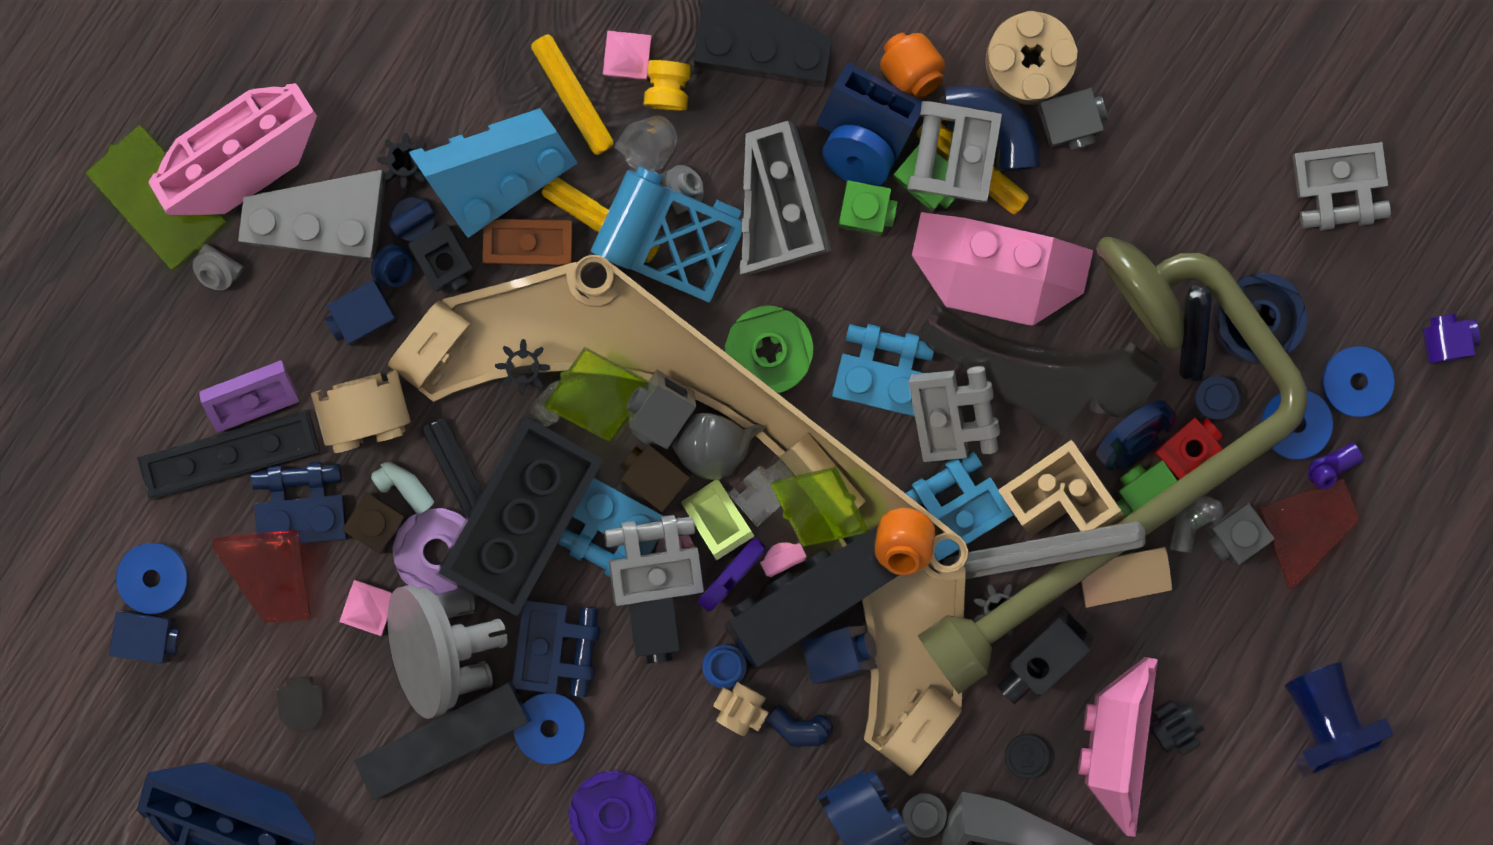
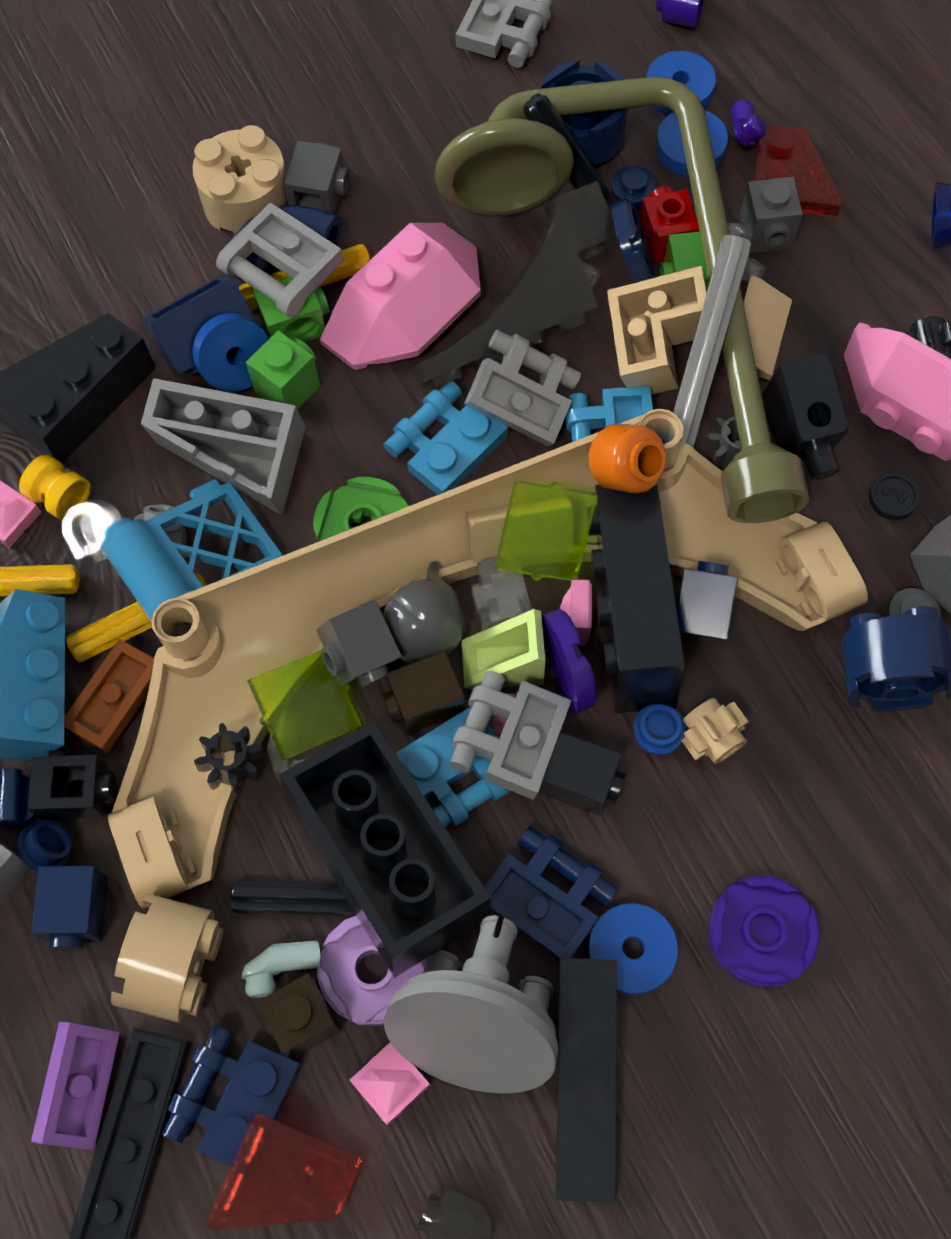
camera: 60 degrees left, 20 degrees down
(800, 733) = (769, 689): dark blue arm -> none
(913, 64) = (180, 271): orange head -> none

